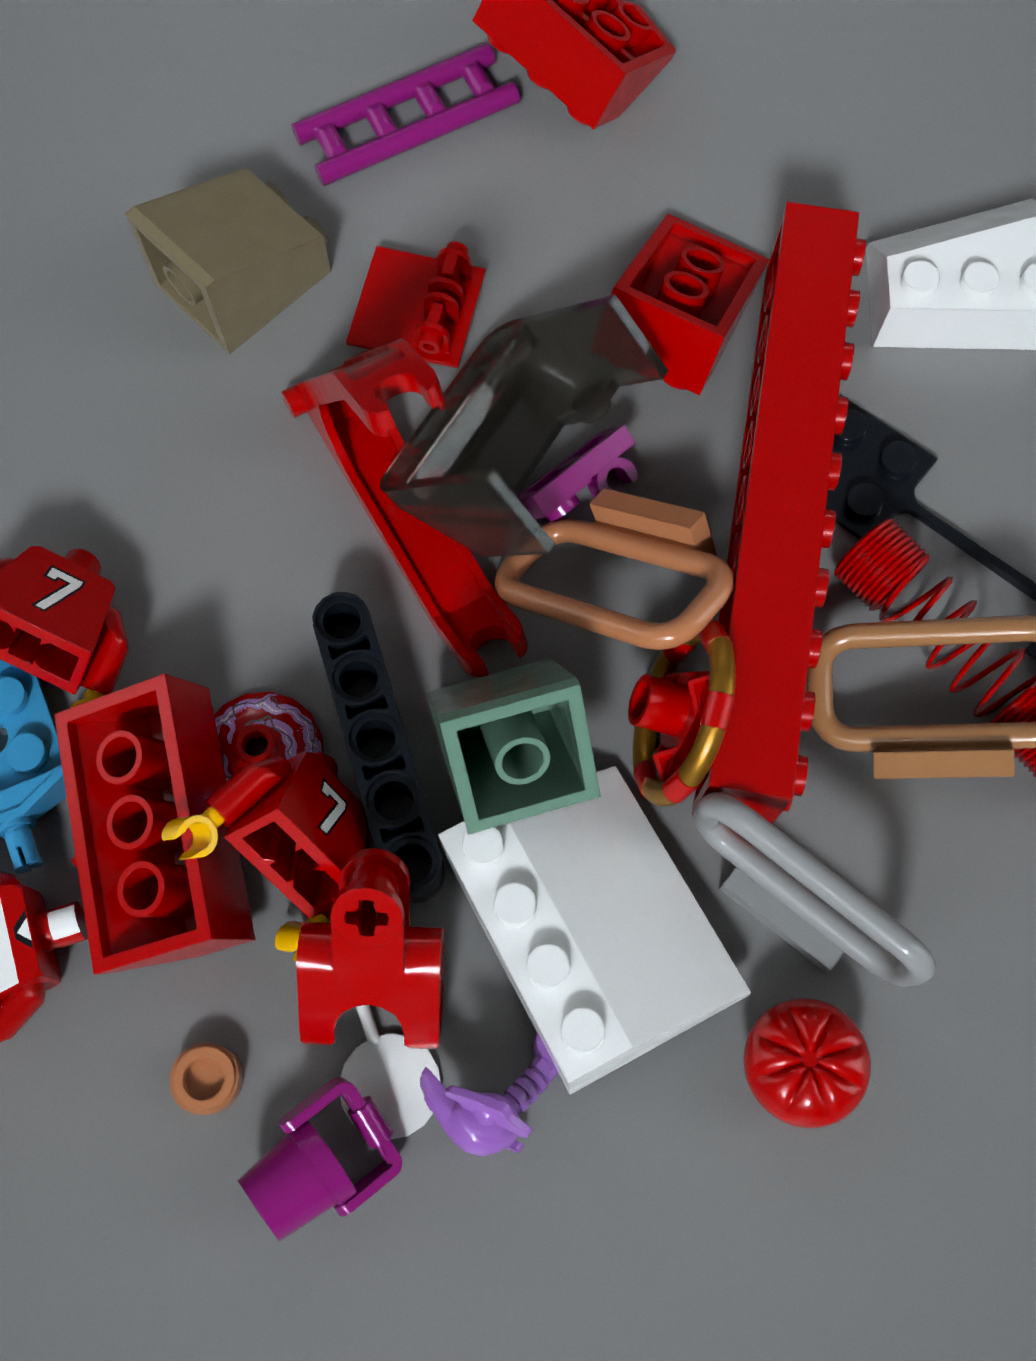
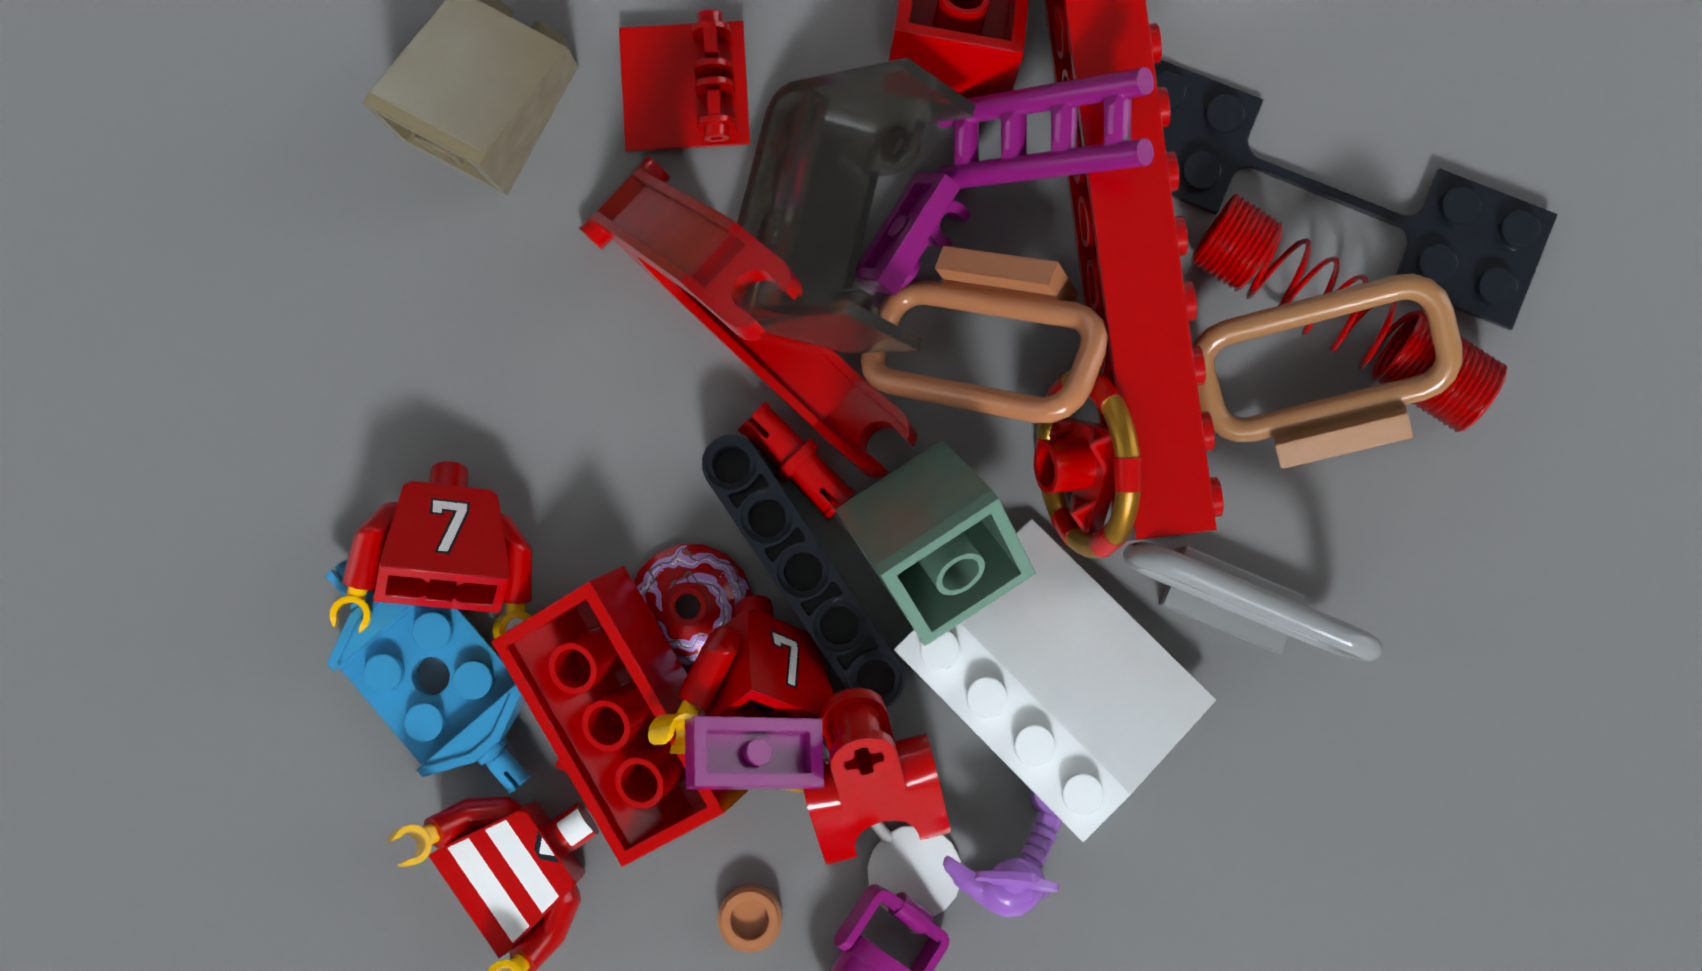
camera: 15 degrees left, 15 degrees up
(259, 878) = (753, 753): none -> magenta plate
(405, 642) = (796, 460): none -> red pin
(739, 421) = (1065, 156): none -> magenta bar
(807, 1063) = (1281, 746): red piece -> none

